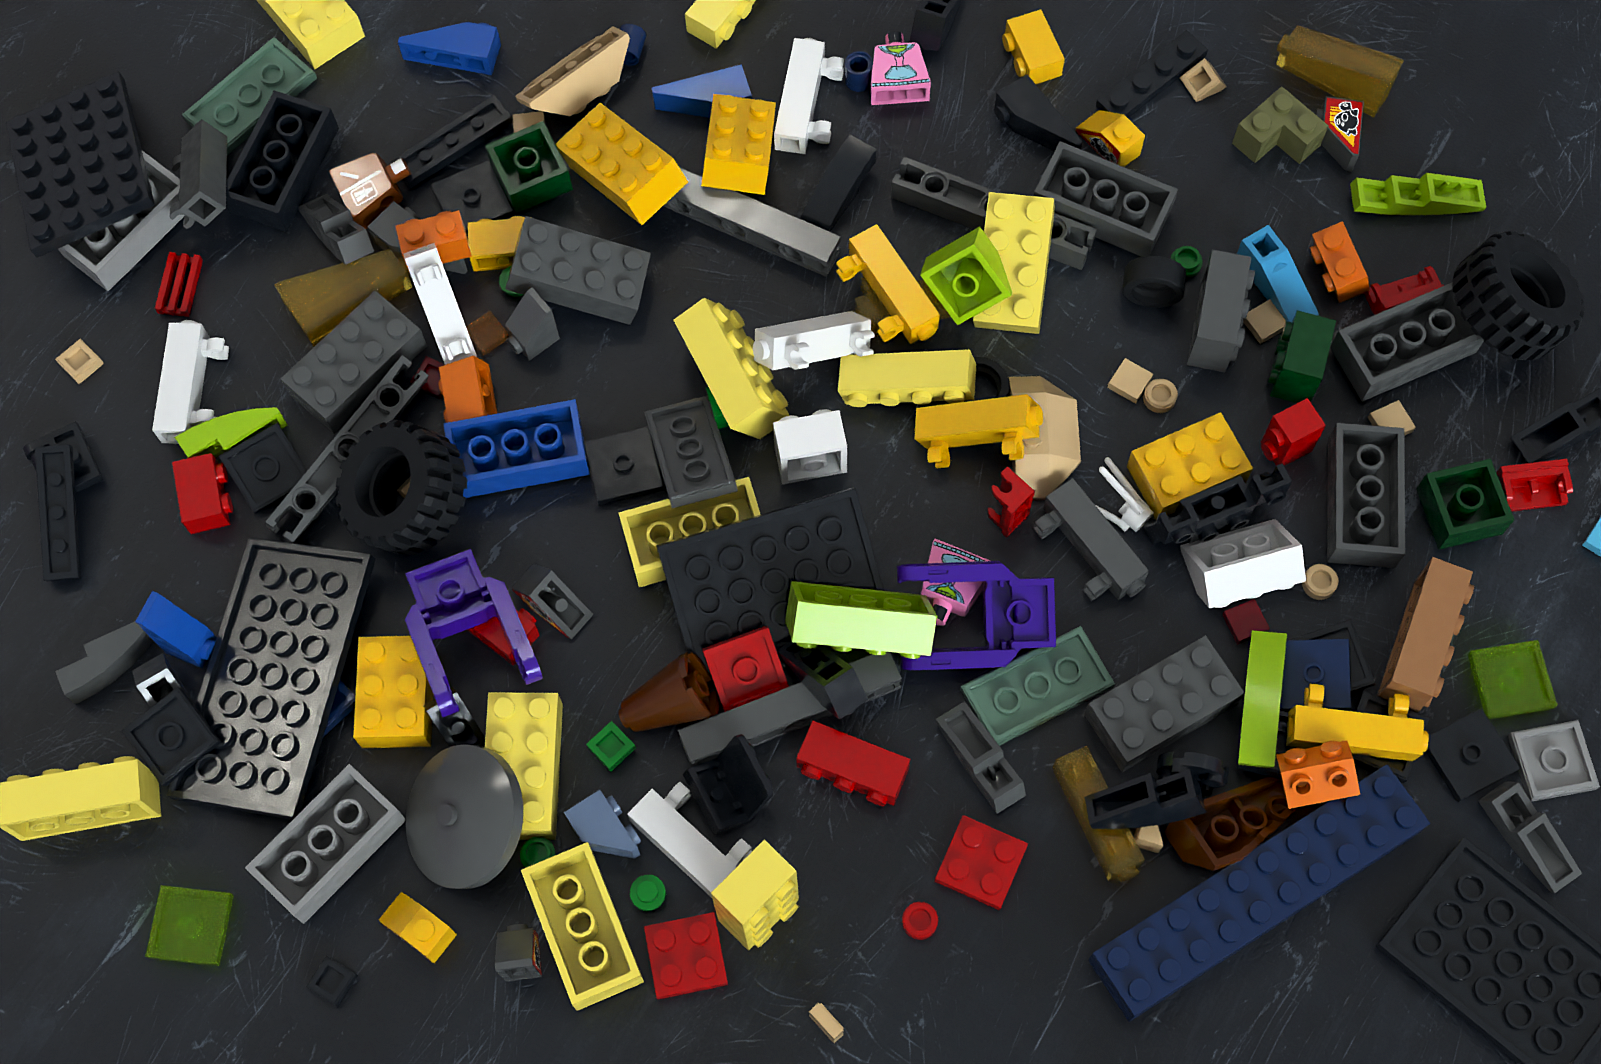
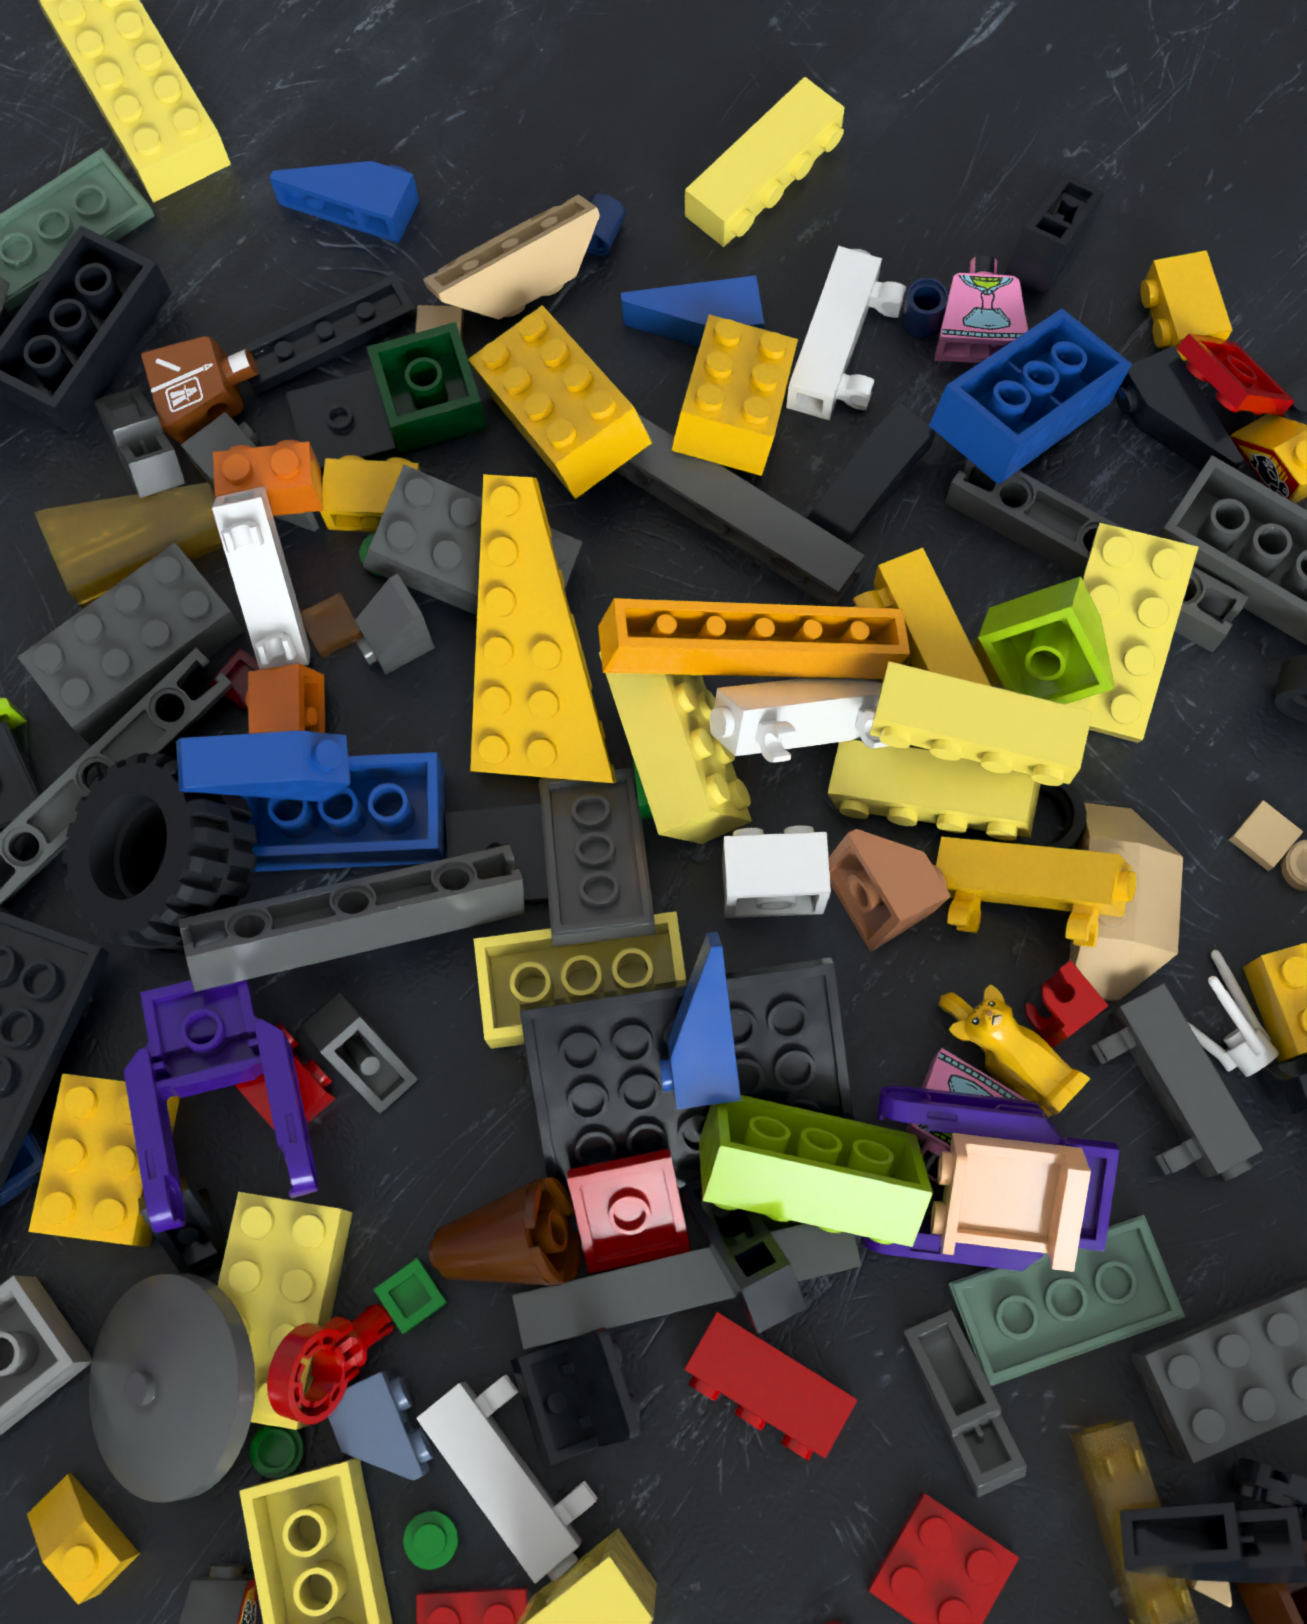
camera: 10 degrees right, 5 degrees up
(467, 416) = (265, 765): none -> blue slope
(537, 508) = (351, 917): none -> dark grey piece
(568, 778) = (335, 1352): none -> red pin
(629, 341) = (530, 668): none -> yellow wing
(773, 295) = (750, 639): none -> light orange brick
(777, 546) = (701, 1039): none -> slope
(882, 443) = (884, 885): none -> nougat slope
(927, 327) = (981, 724): none -> light yellow brick
(935, 118) = (1029, 395): none -> blue brick
(981, 532) = (1013, 1052): none -> yellow animal
(988, 616) = (1012, 1197): none -> light nougat panel
(1069, 88) = (1235, 376): none -> red plate

